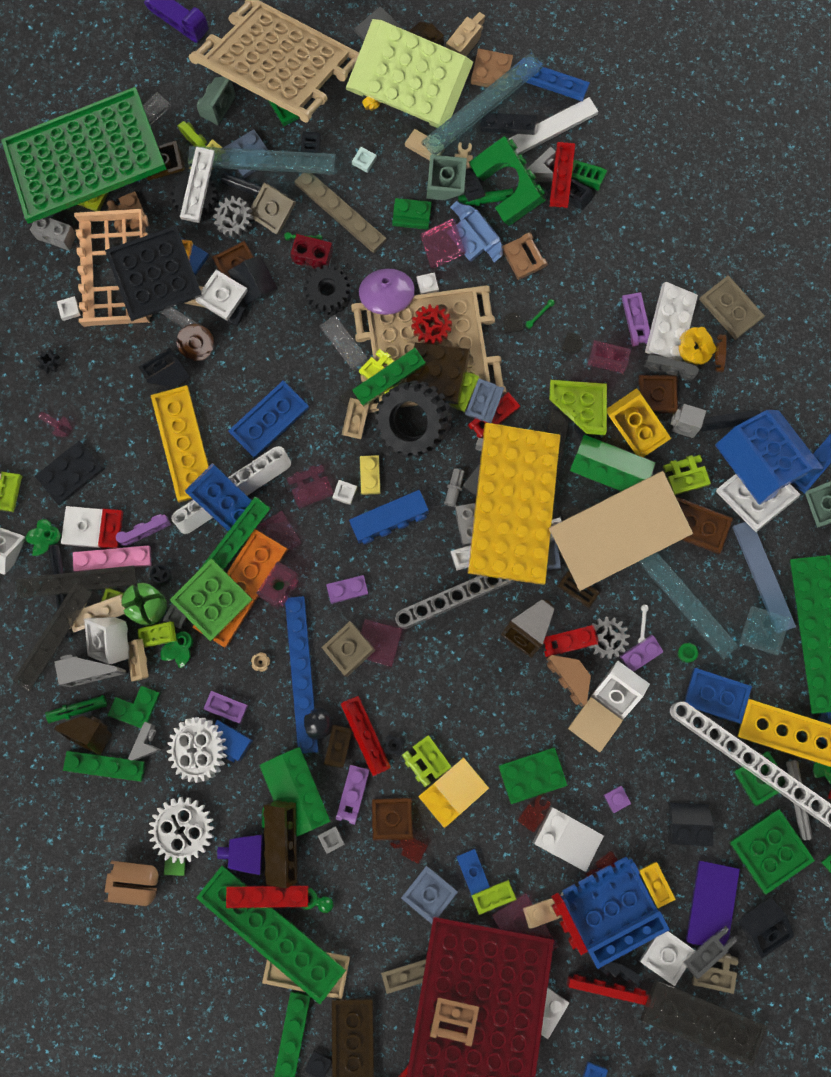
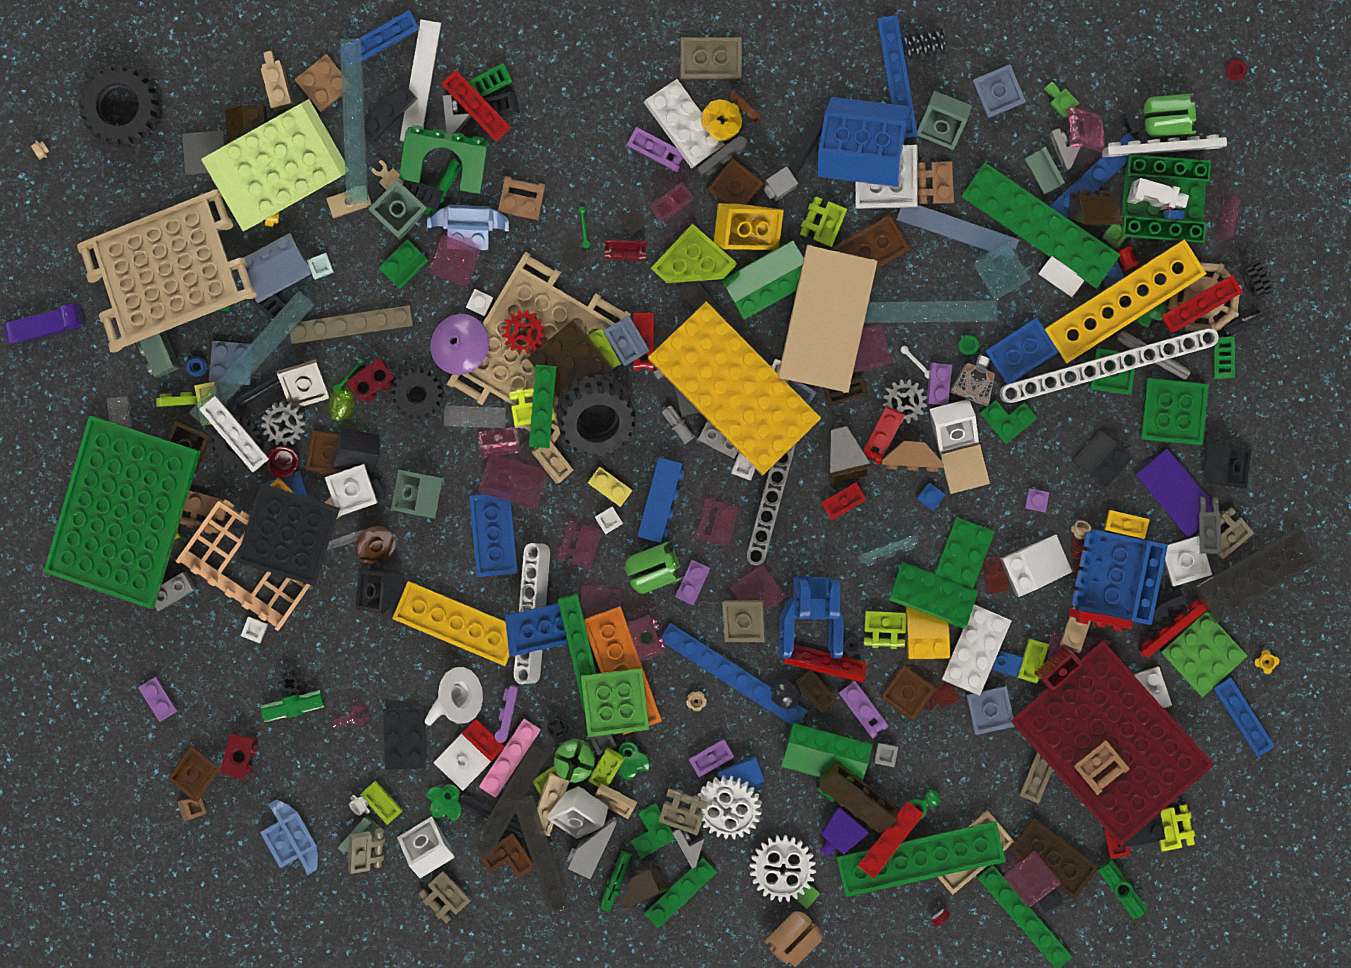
camera: 55 degrees left, 10 degrees up
(32, 375) = (292, 706): none -> green piece
(40, 614) = (509, 851): none -> reddish brown plate
(128, 484) = (458, 697): none -> white piece
(161, 717) = (682, 817): none -> dark tan plate
(205, 235) = (282, 461): none -> dark red hair
(227, 128) = (190, 366): none -> blue plate
(236, 987) = (940, 917): none -> dark red tile
(256, 344) = (416, 494): none -> sand green slope
(277, 245) = (341, 405): none -> clear neon green head
(318, 403) = (513, 481): none -> clear pink tile
(322, 1038) = (1032, 879): none -> clear pink tile
(329, 558) = (656, 578): none -> bright green cylinder
(338, 126) = (276, 267): none -> sand blue slope
(339, 373) = (499, 441): none -> clear pink slope
(406, 689) = (813, 600): none -> blue piece
(408, 577) = (722, 525): none -> clear pink plate
(466, 845) = (976, 650): none -> white plate
(481, 777) = (933, 595): none -> green plate
(488, 715) = (888, 550): none -> clear light blue plate
(497, 652) = (843, 501): none -> red plate
(504, 922) = (1058, 668): none -> dark red brick
(548, 352) = (625, 249): none -> dark red hinge
(553, 715) = (931, 496): none -> blue plate
(608, 1032) = (1203, 654): none -> bright green plate
(622, 851) = (1080, 529): none -> tan plate
(624, 583) = (872, 349): none -> clear pink tile
(654, 731) = (1007, 425): none -> green plate
(665, 679) = (975, 382): none -> torso
(787, 537) = (942, 183): none -> medium nougat plate
(796, 680) = (1061, 276): none -> white slope

